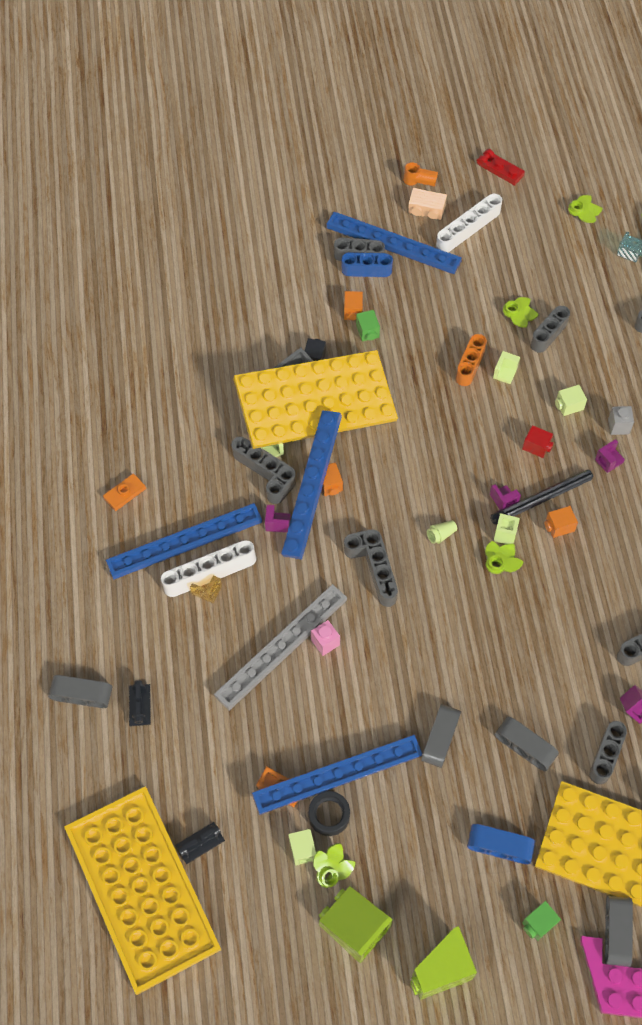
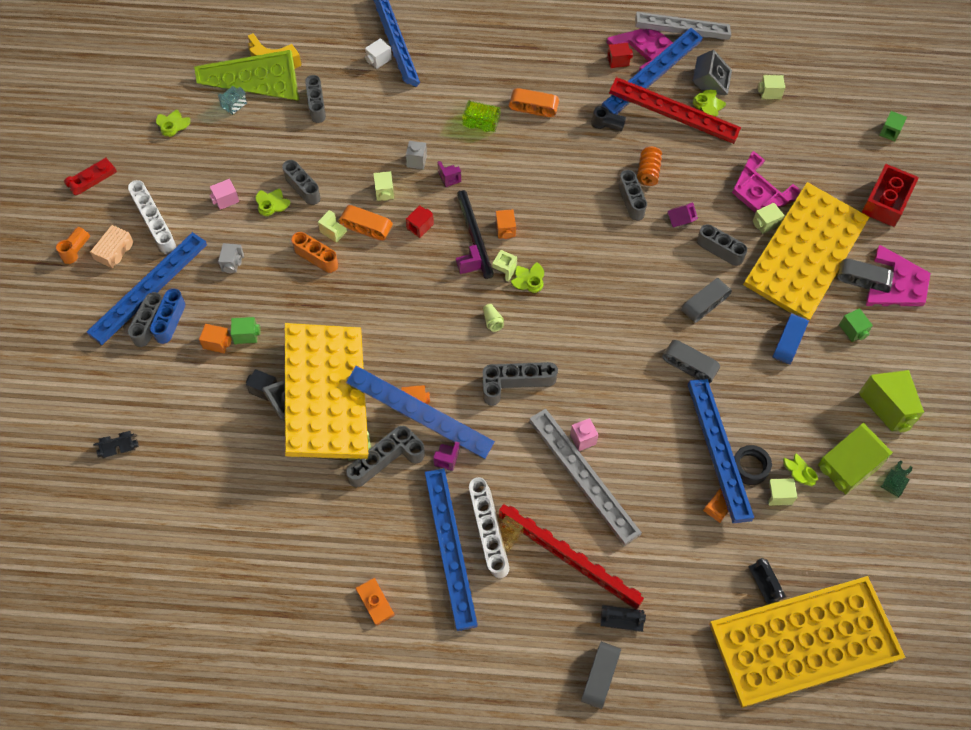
camera: 80 degrees left, 0 degrees up
(189, 652) = (575, 559): none -> red plate
(237, 269) = (108, 446): none -> black hinge
(345, 982) = (896, 480): none -> clear green plate
(442, 294) = (230, 257): none -> light grey brick
(514, 270) = (224, 194): none -> bright pink brick
(520, 394) = (365, 222): none -> orange beam

